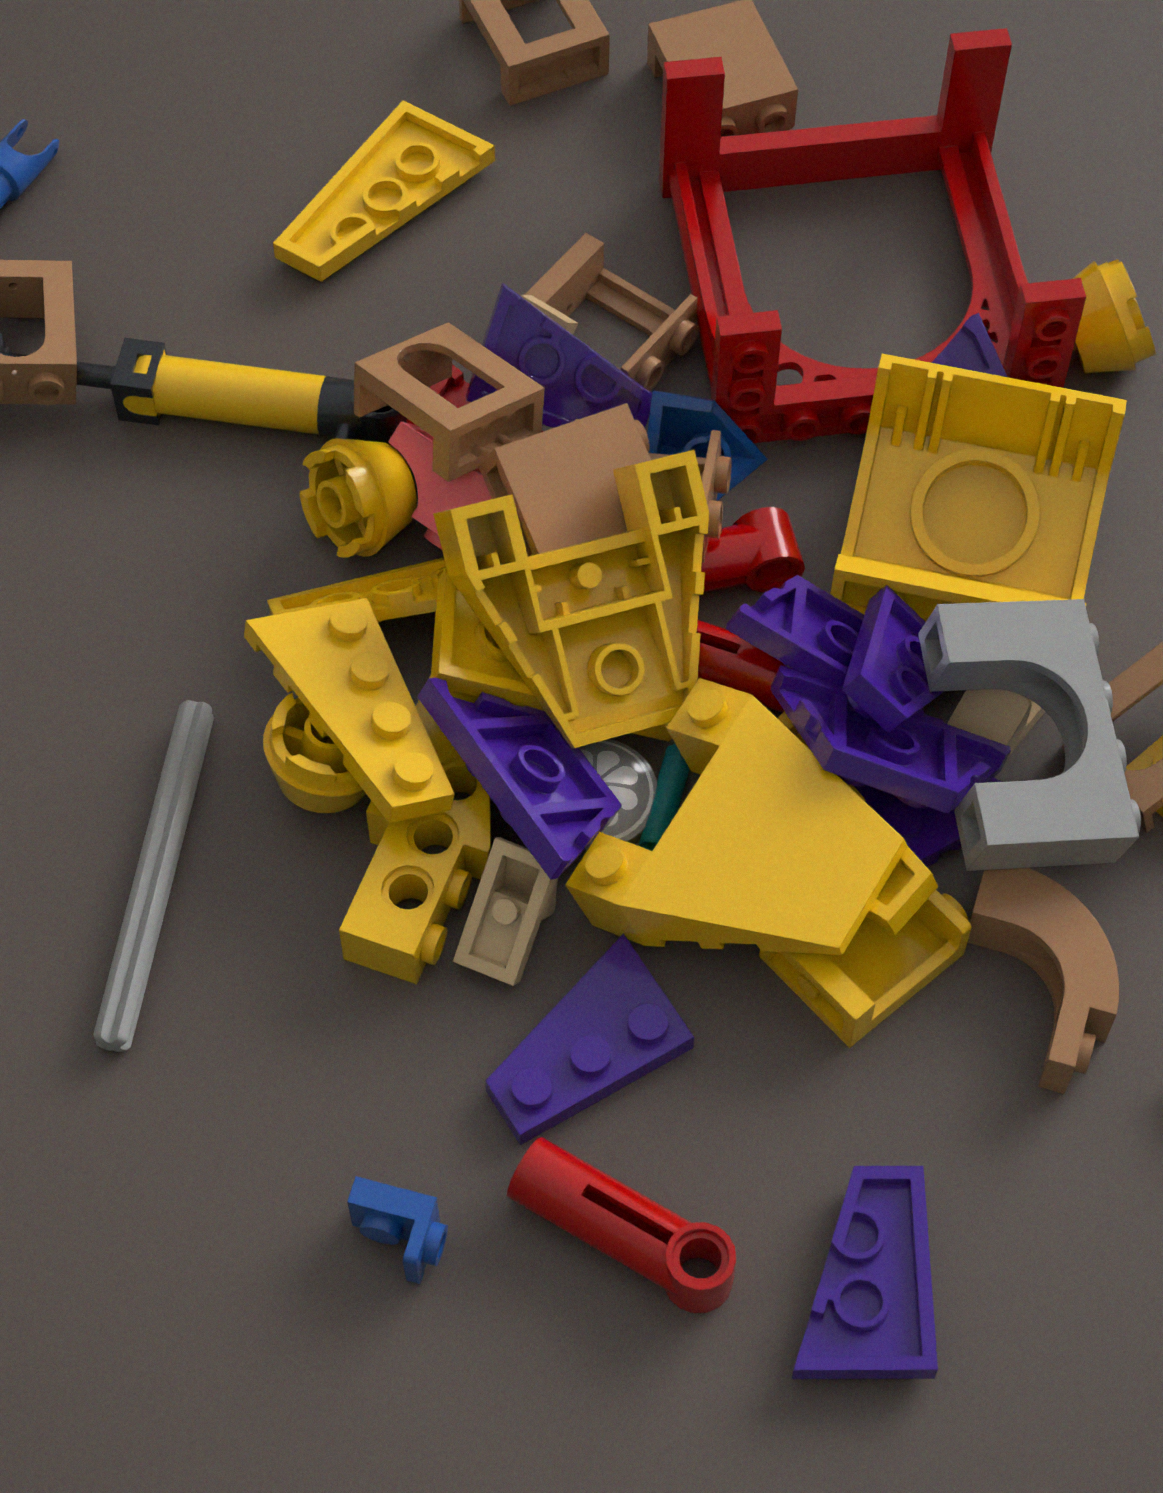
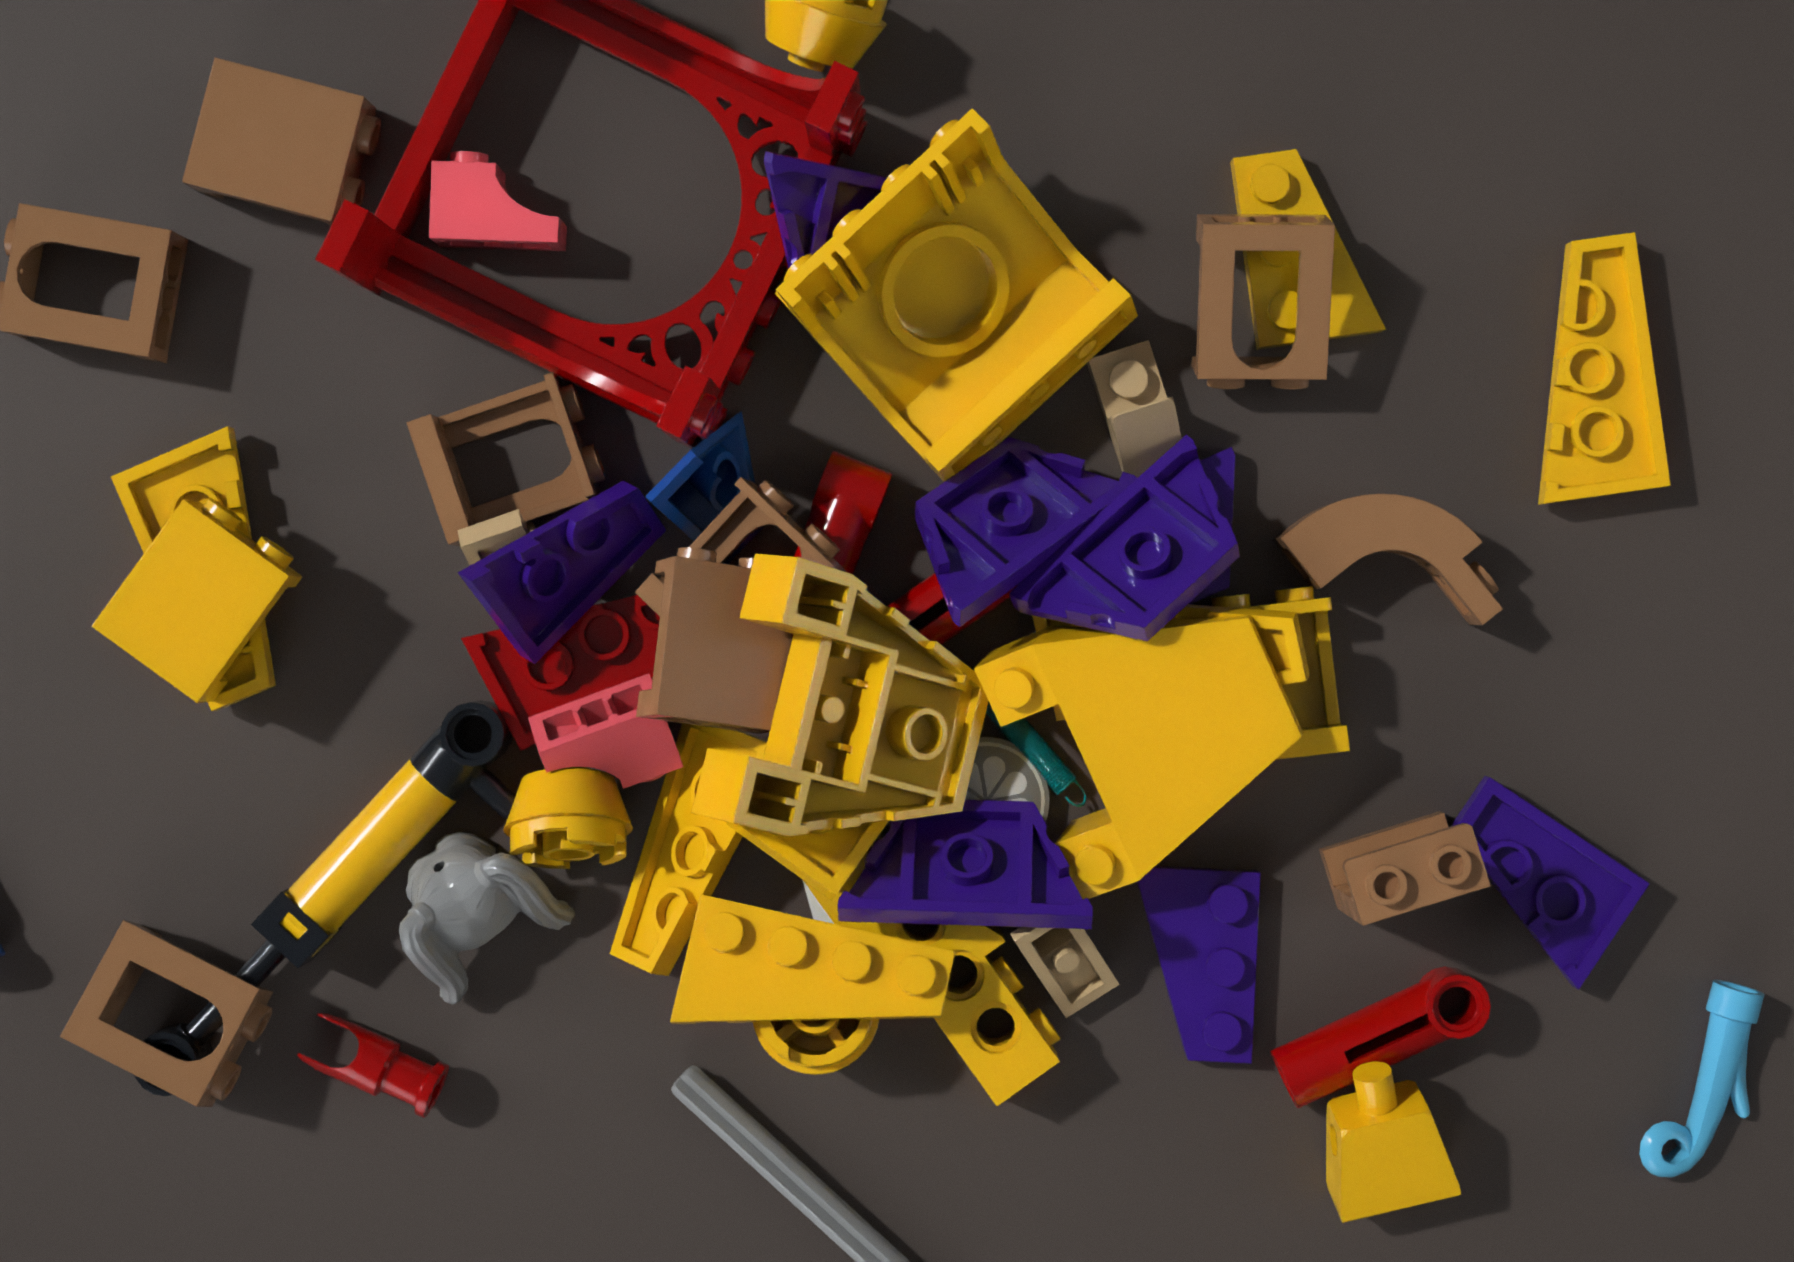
camera: 55 degrees left, 30 degrees up
(64, 500) = (386, 1069): none -> red piece
(235, 468) = (463, 900): none -> light grey hair
(354, 172) = (197, 598): none -> yellow panel
(393, 1213) = (1255, 1204): blue bracket -> none
(463, 434) = (610, 716): medium nougat panel -> none
(527, 1283) = (1384, 1147): none -> yellow torso
(773, 208) = (477, 211): none -> coral arch
(788, 1116) = (1403, 868): none -> medium nougat panel
(887, 664) = (1068, 487): dark purple wing -> none
(1051, 658) = (1302, 434): light grey arch -> none

